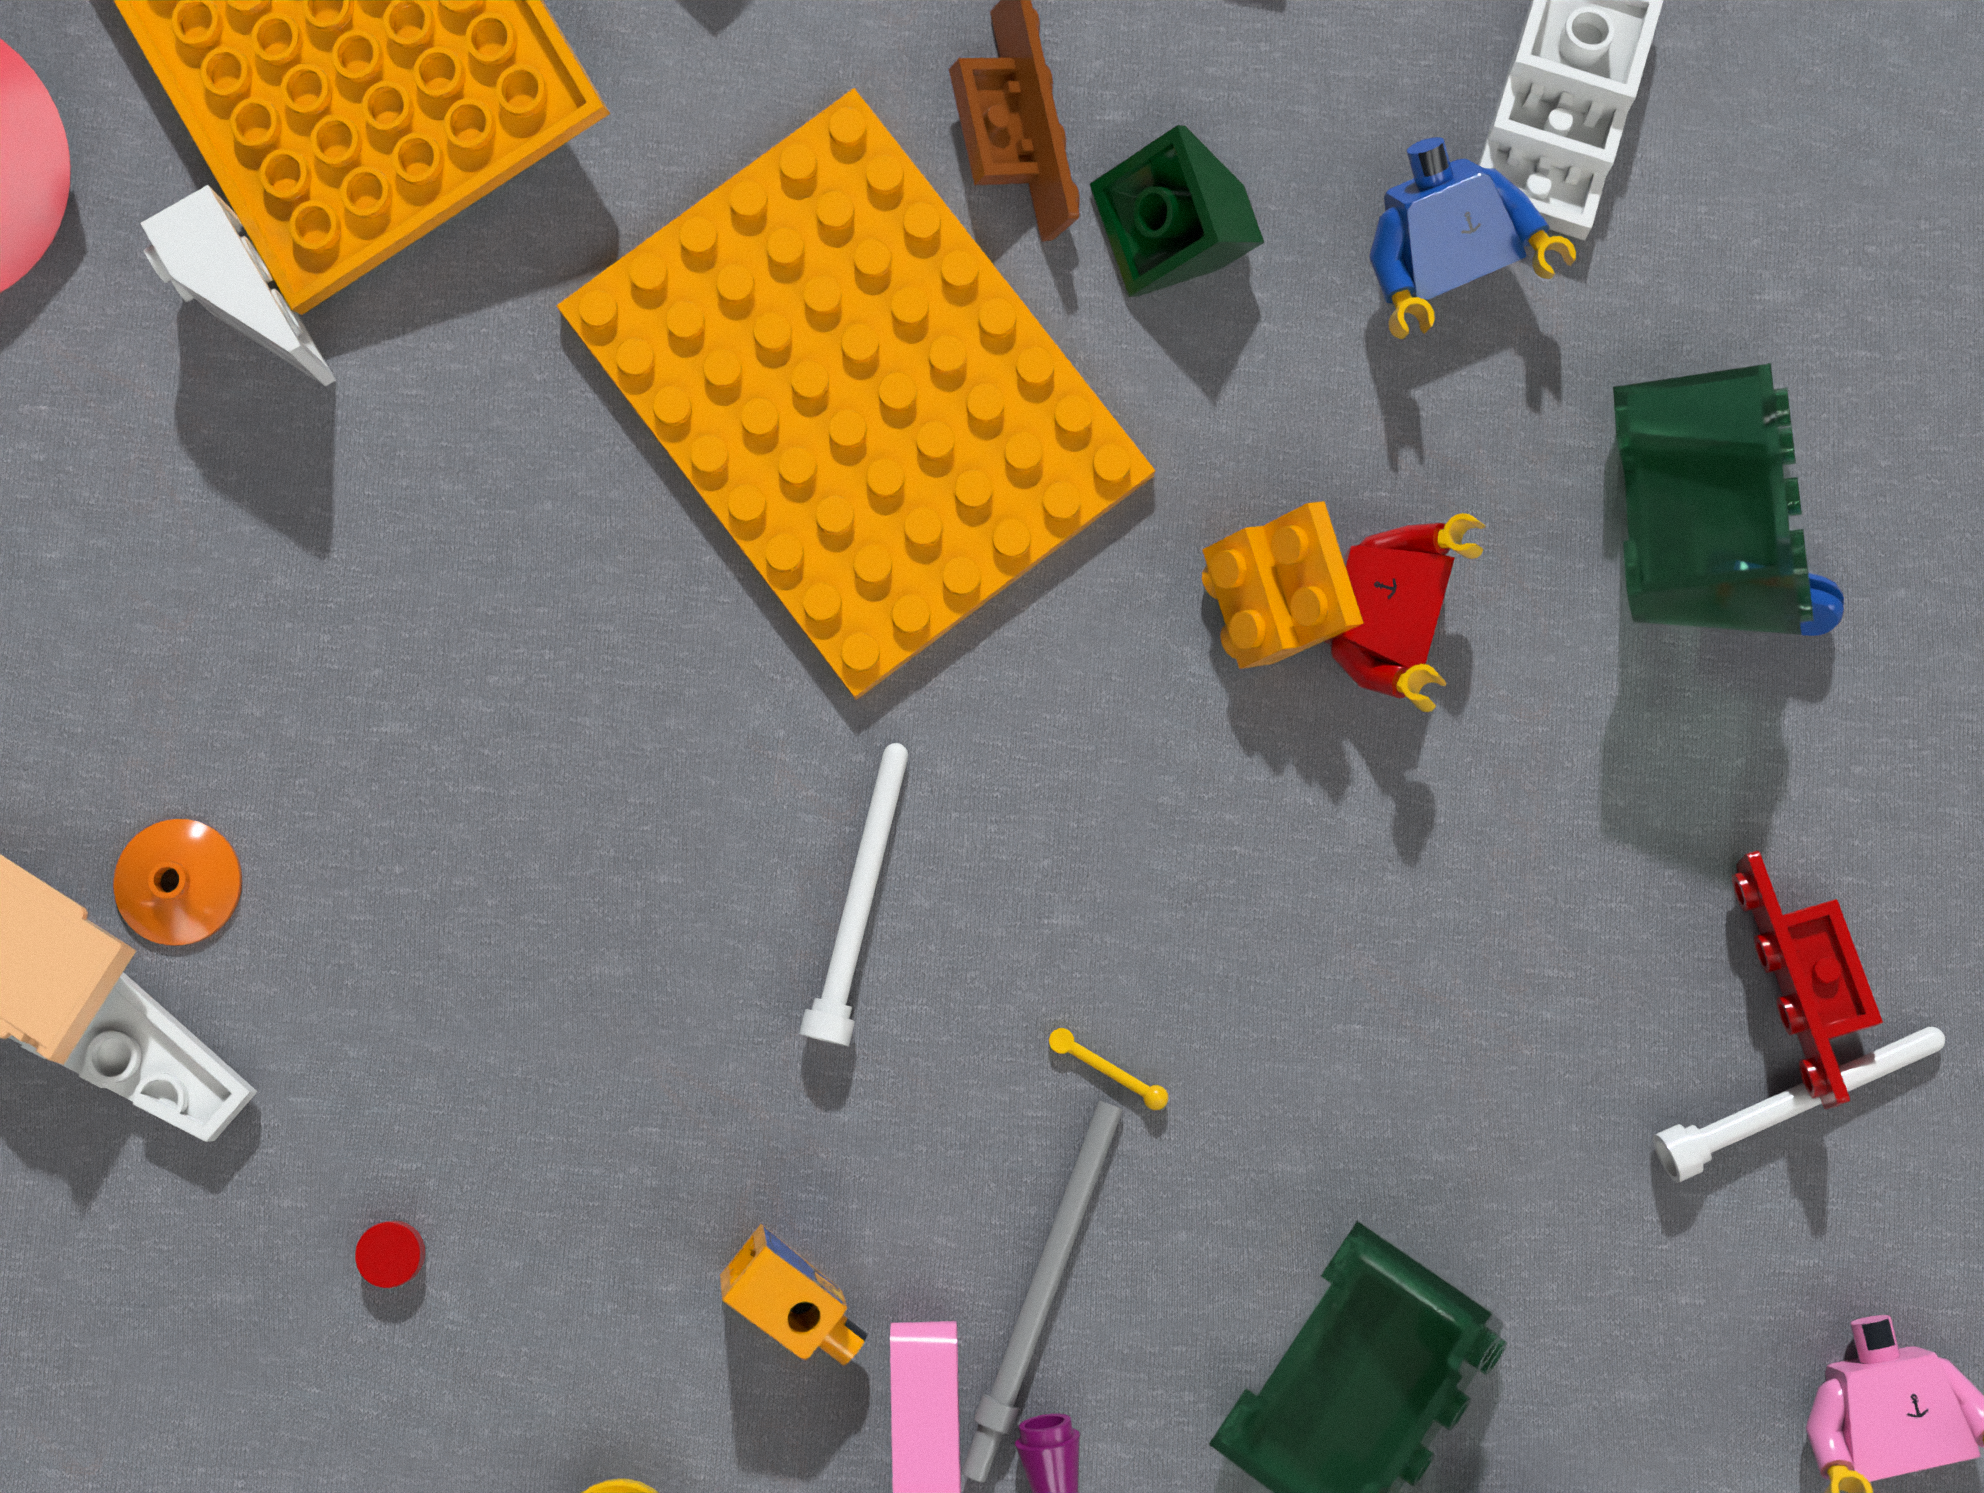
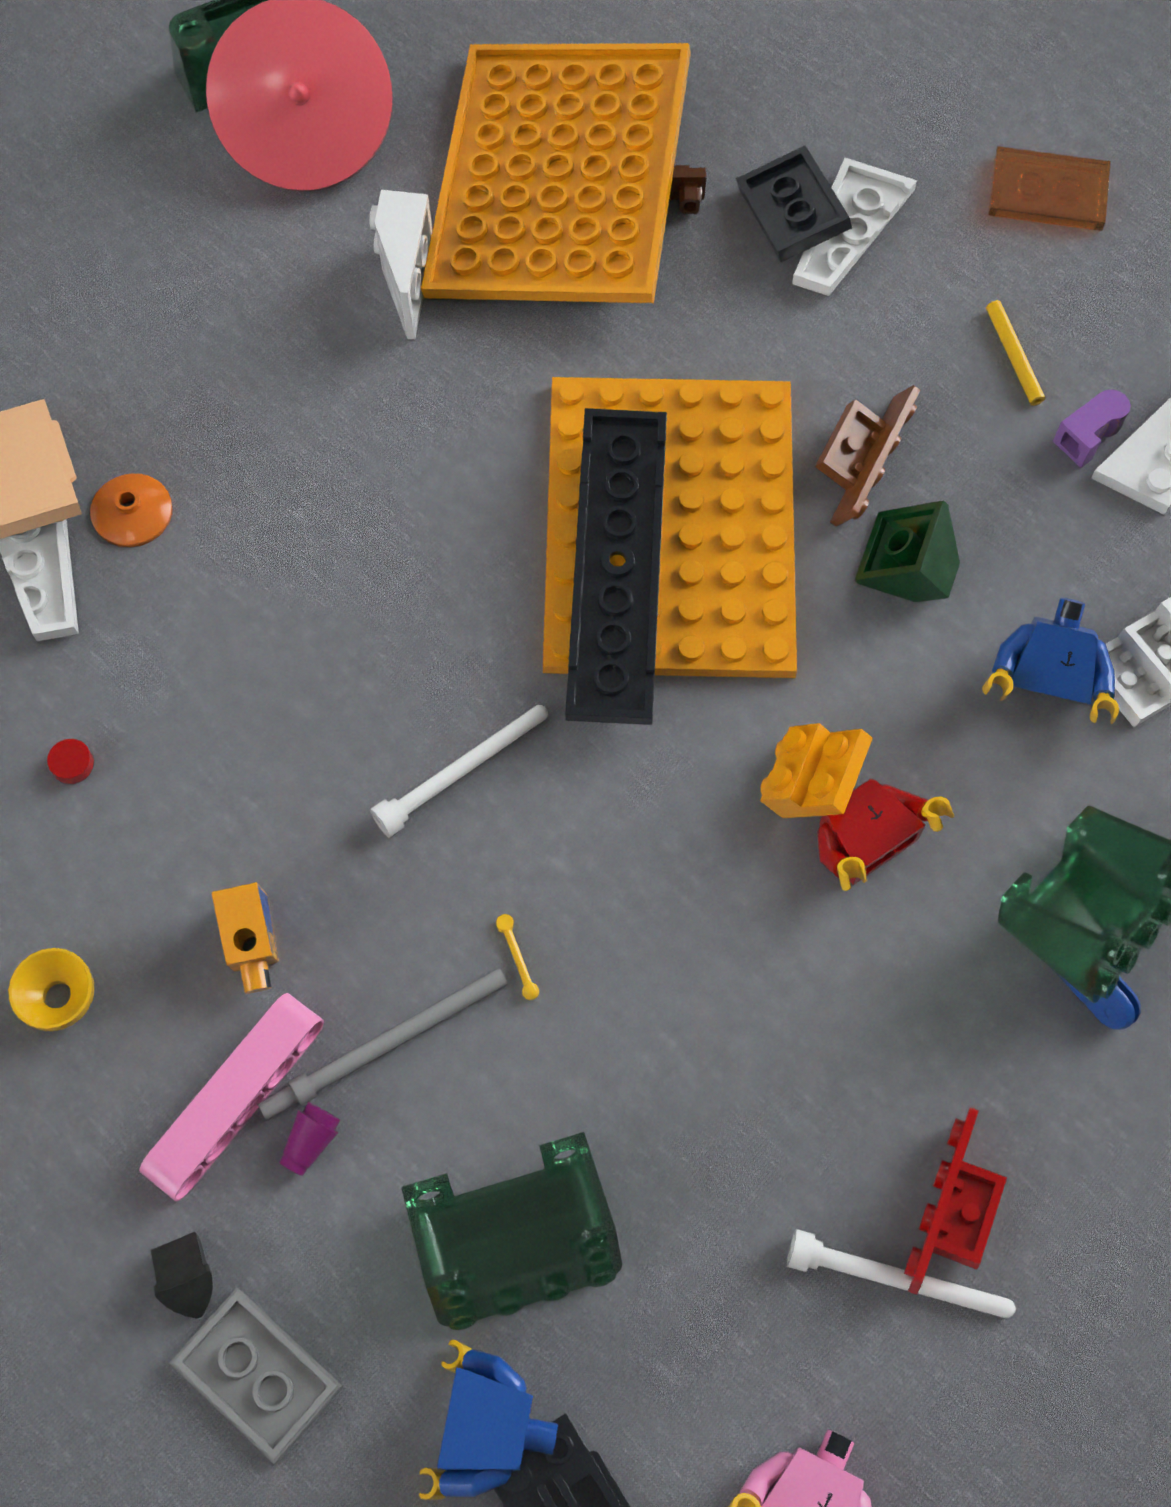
camera: 35 degrees right, 15 degrees down
(890, 557) = (617, 605): none -> black piece

